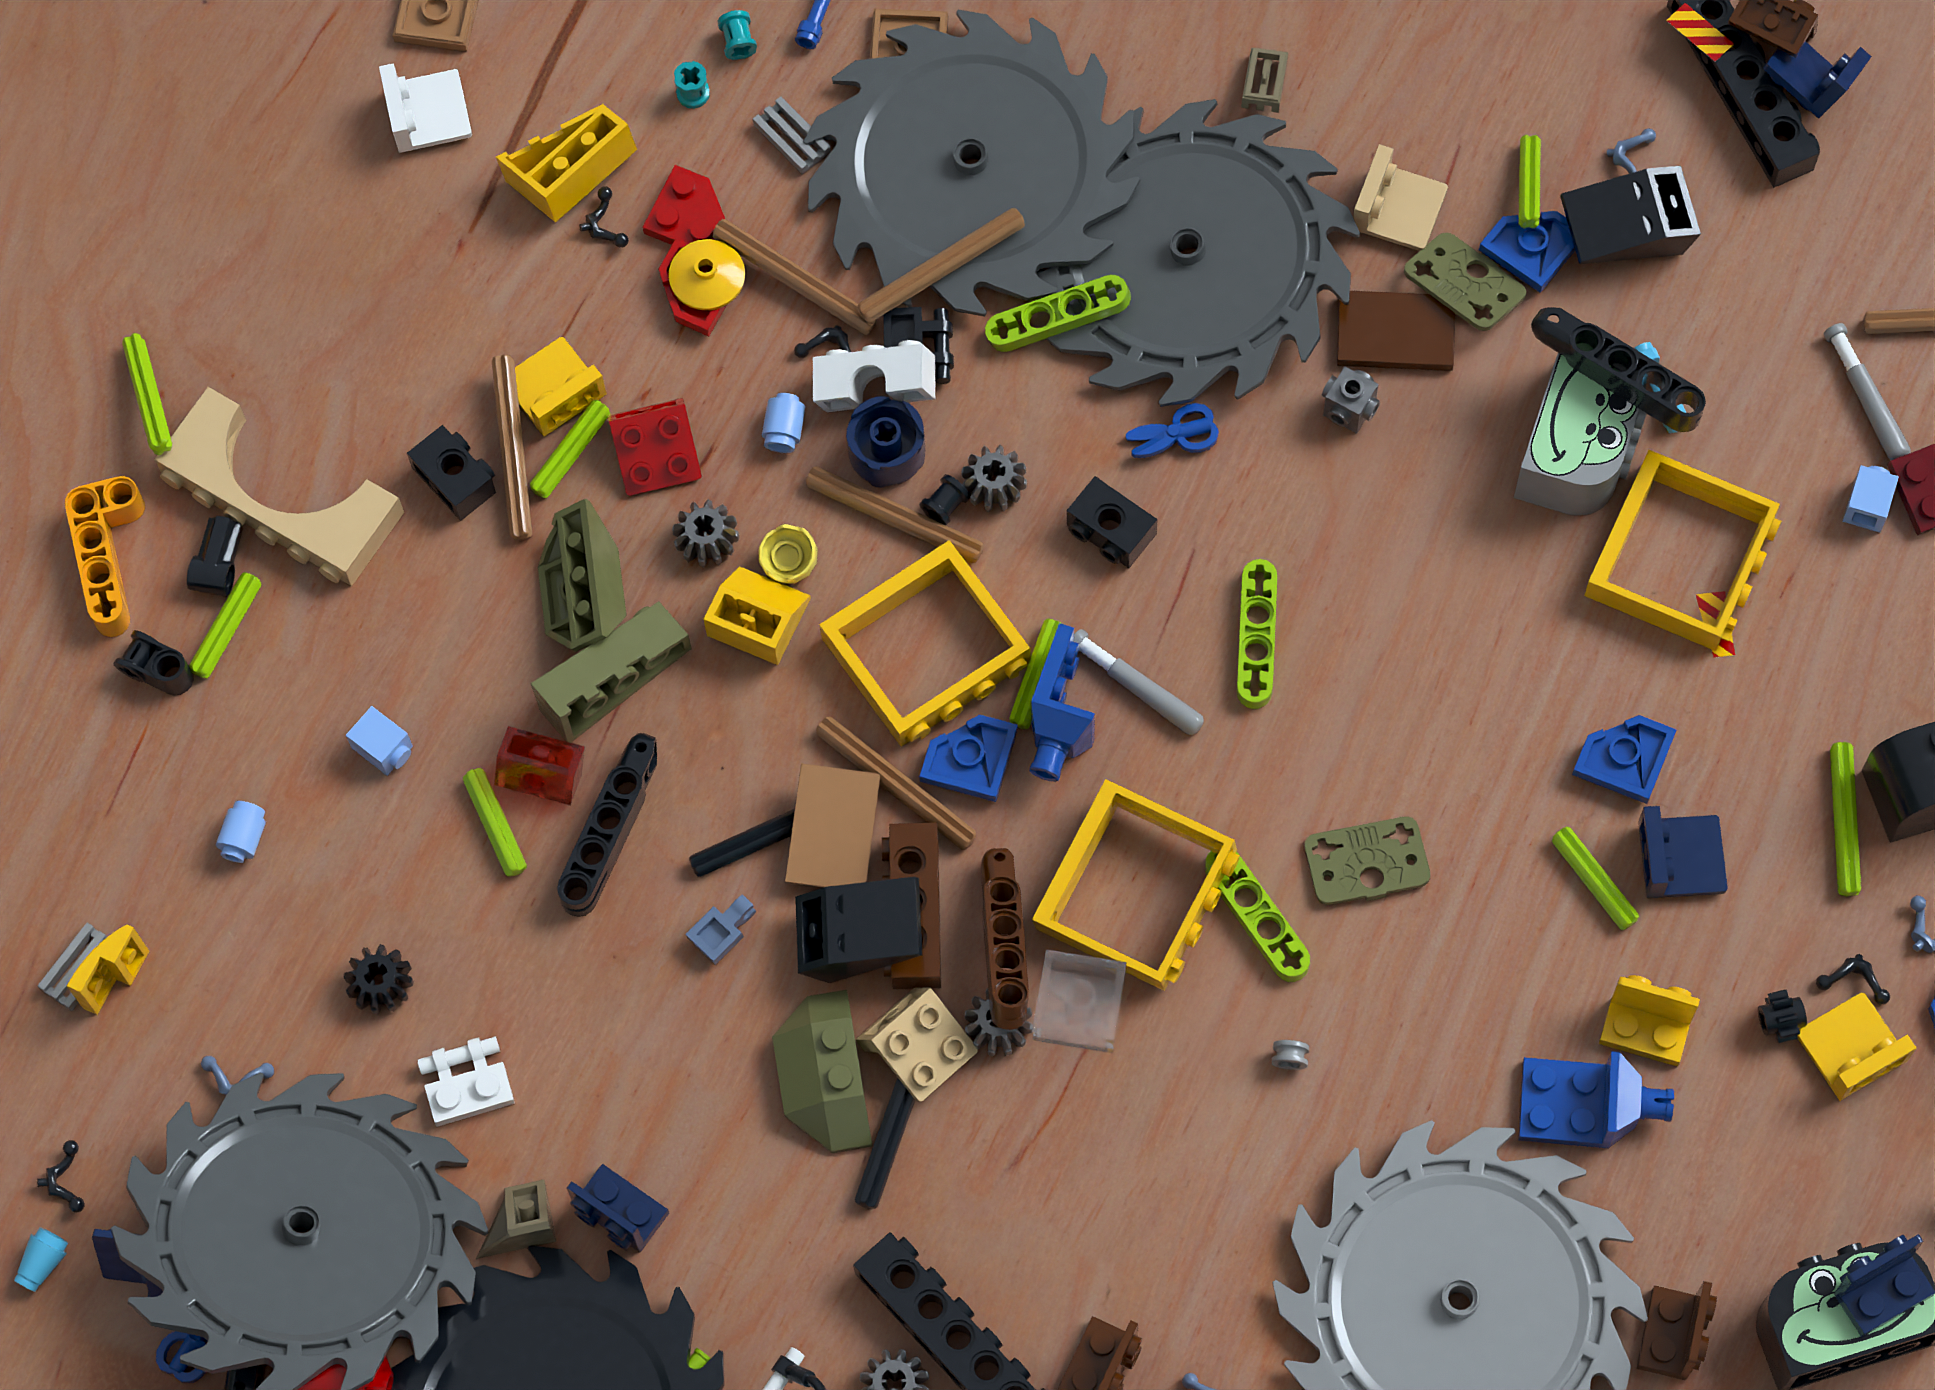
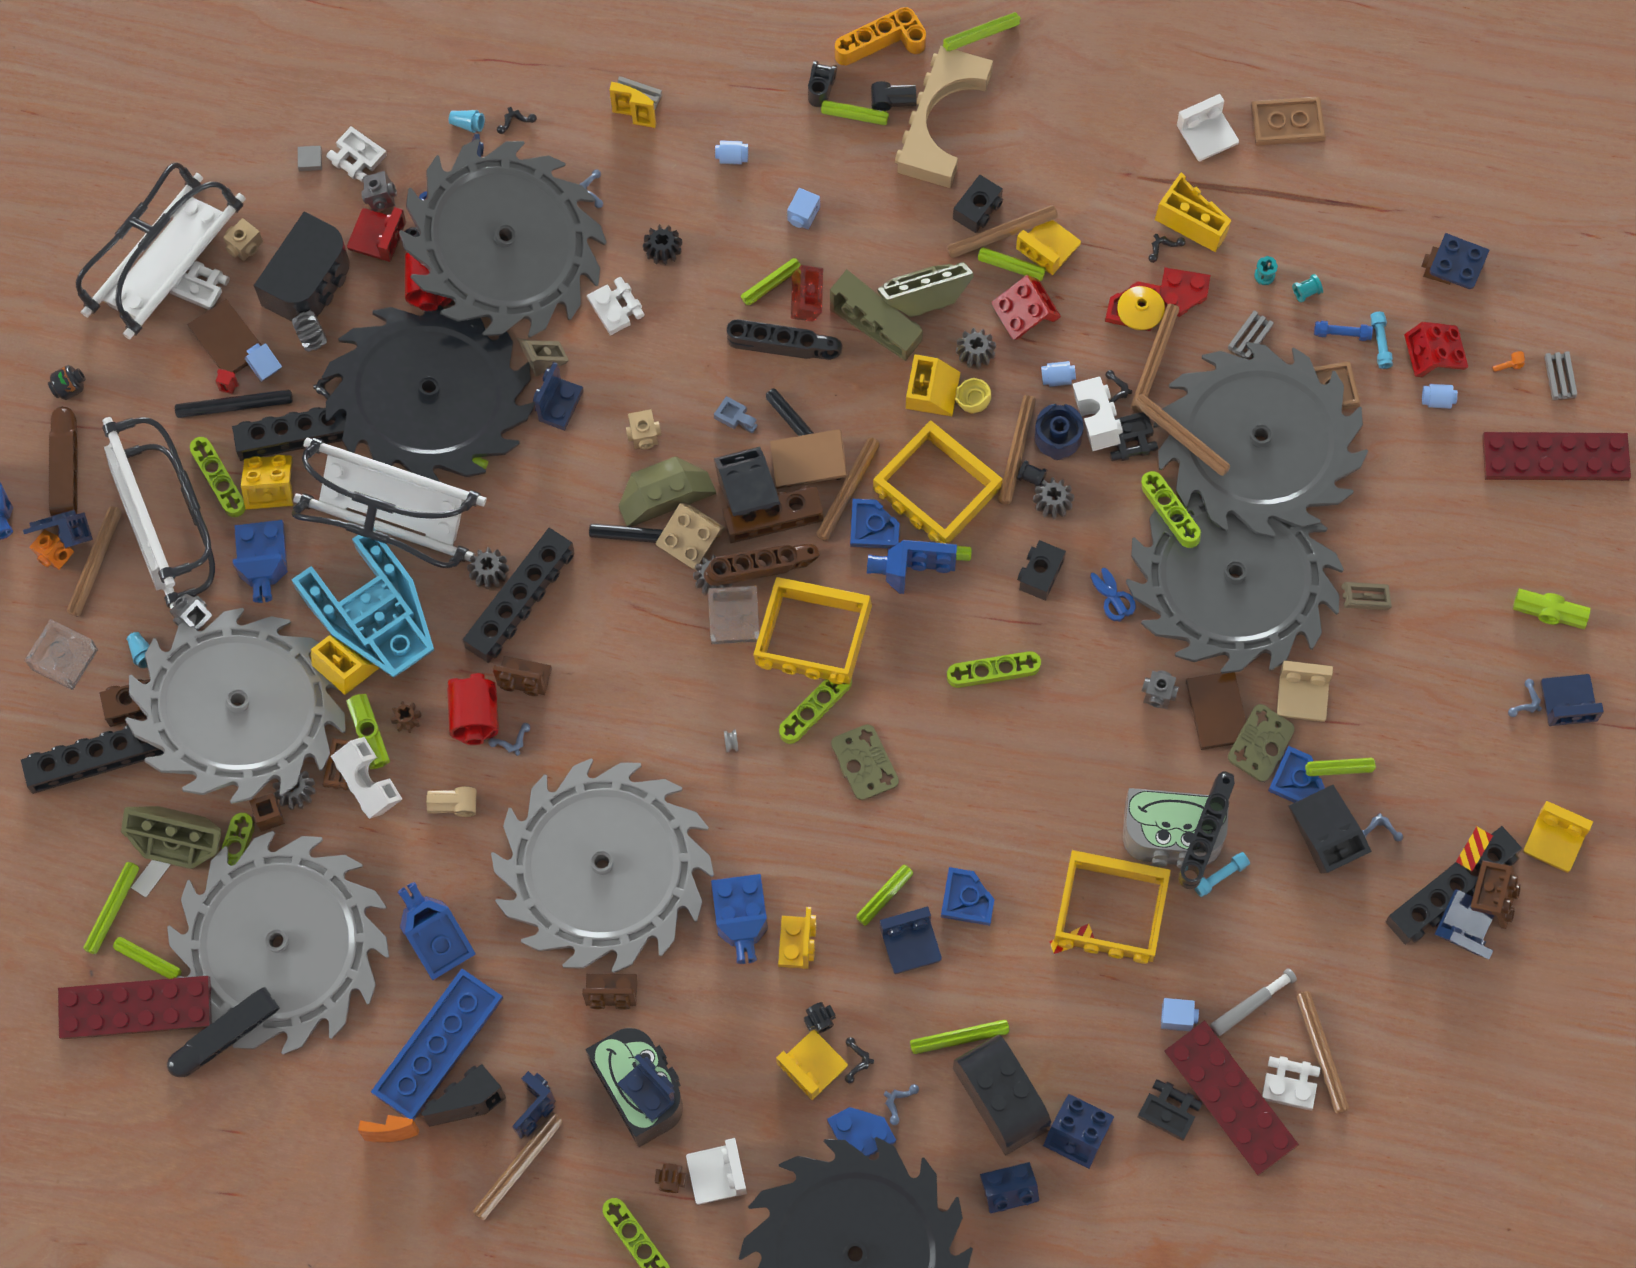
camera: 75 degrees right, 0 degrees up
(712, 1078) = (643, 429): none -> tan brick
(1148, 691) = (938, 619): light grey piece -> none

